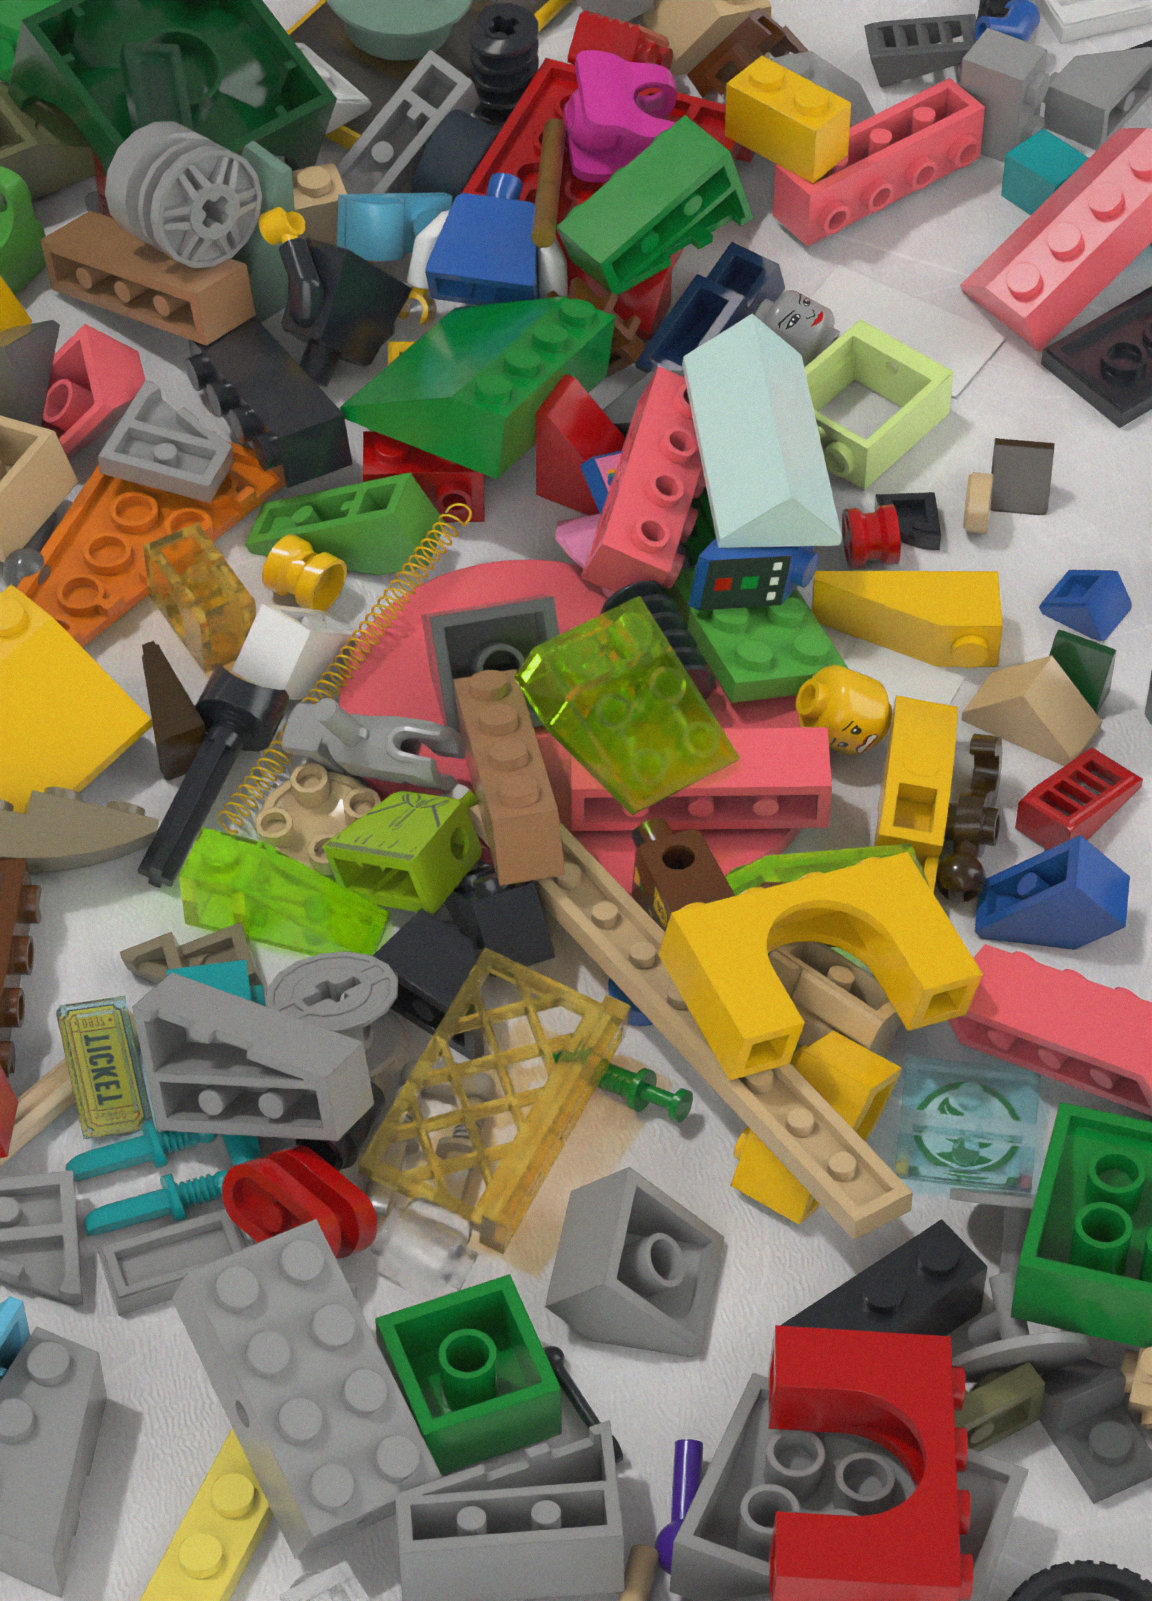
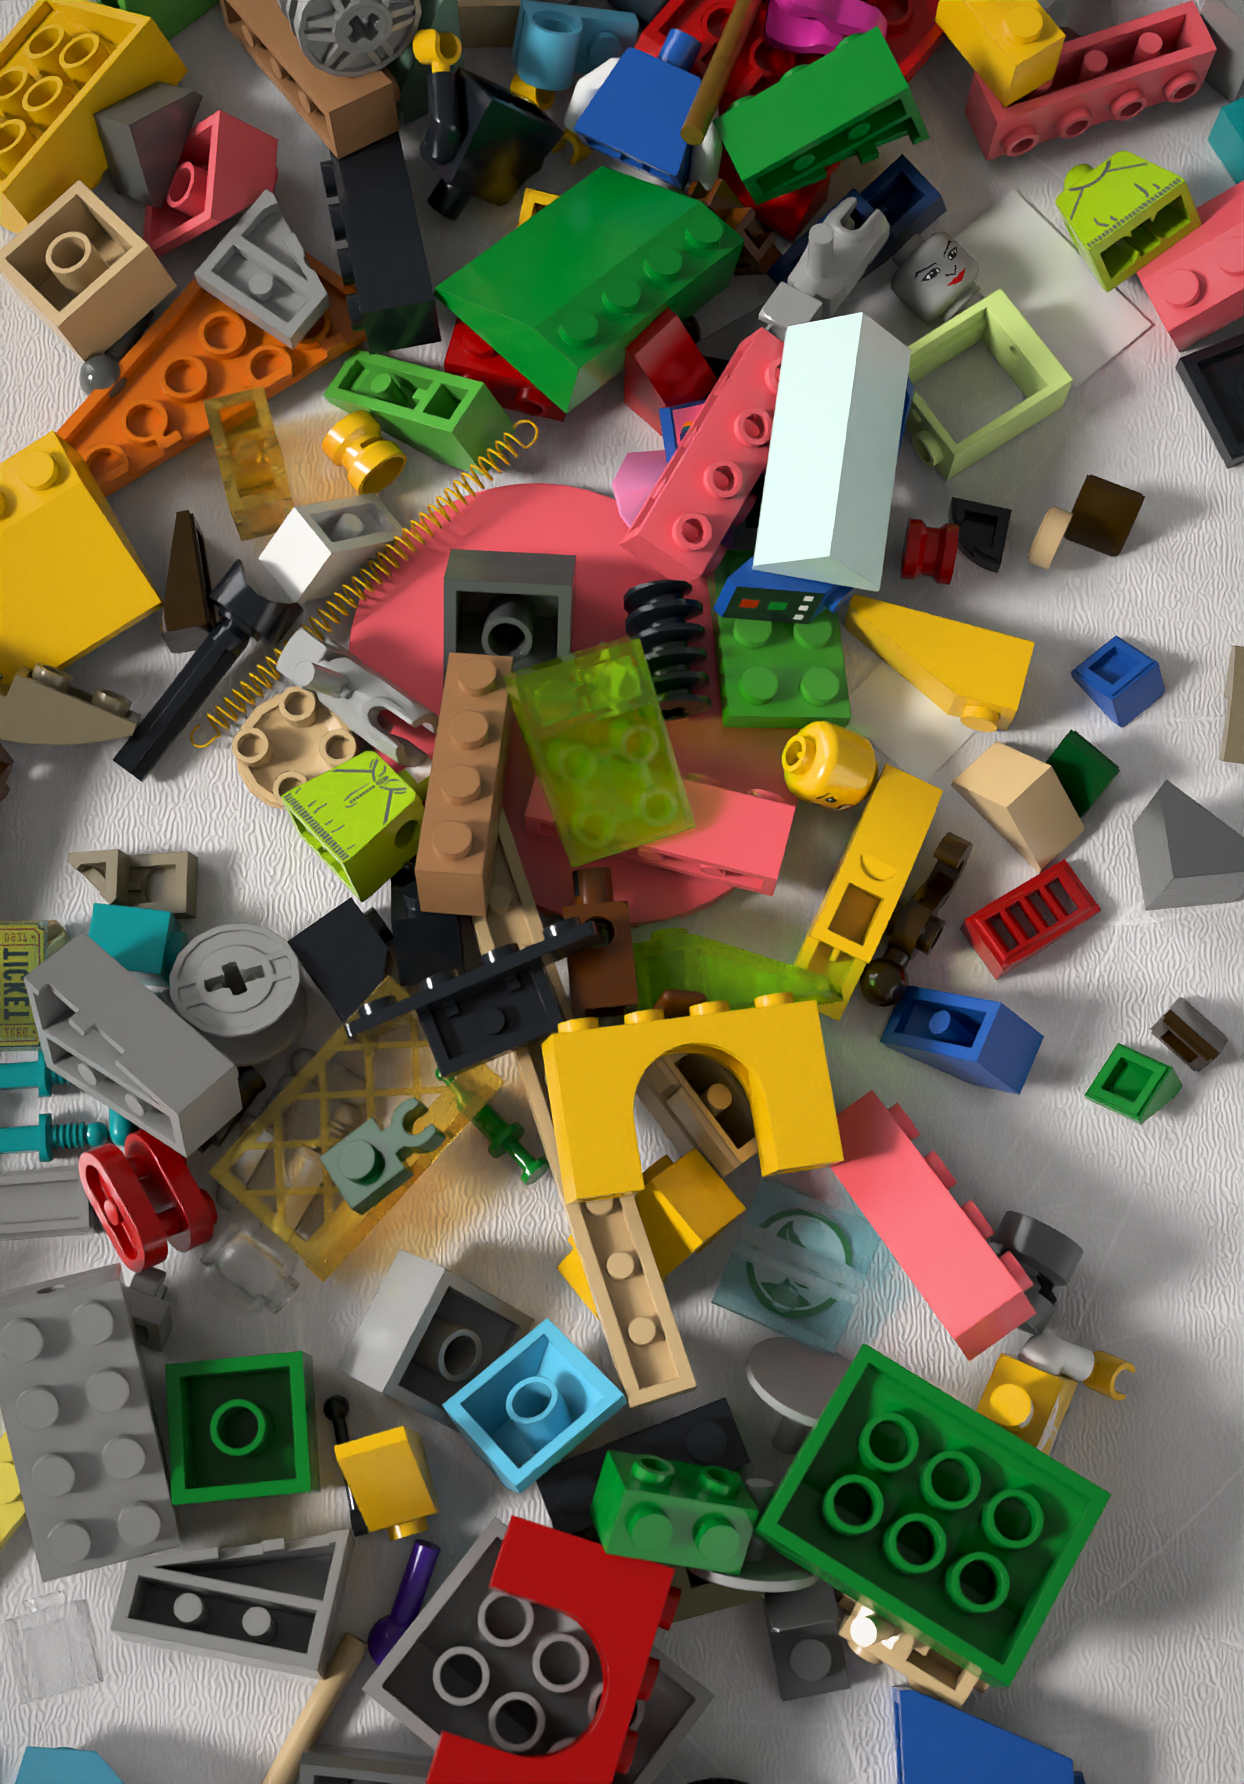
camera: 15 degrees right, 25 degrees up
(274, 898) = (231, 837): clear neon green slope -> none
(529, 1100) = (373, 1158): none -> plate
(590, 935) = (487, 1009): none -> black bracket
(634, 1358) = (390, 1481): none -> yellow slope
(698, 316) = (826, 270): none -> light grey piece
(752, 1280) = (533, 1406): none -> medium azure slope
(931, 1296) = (673, 1512): none -> green brick
(951, 245) = (1124, 214): none -> lime torso

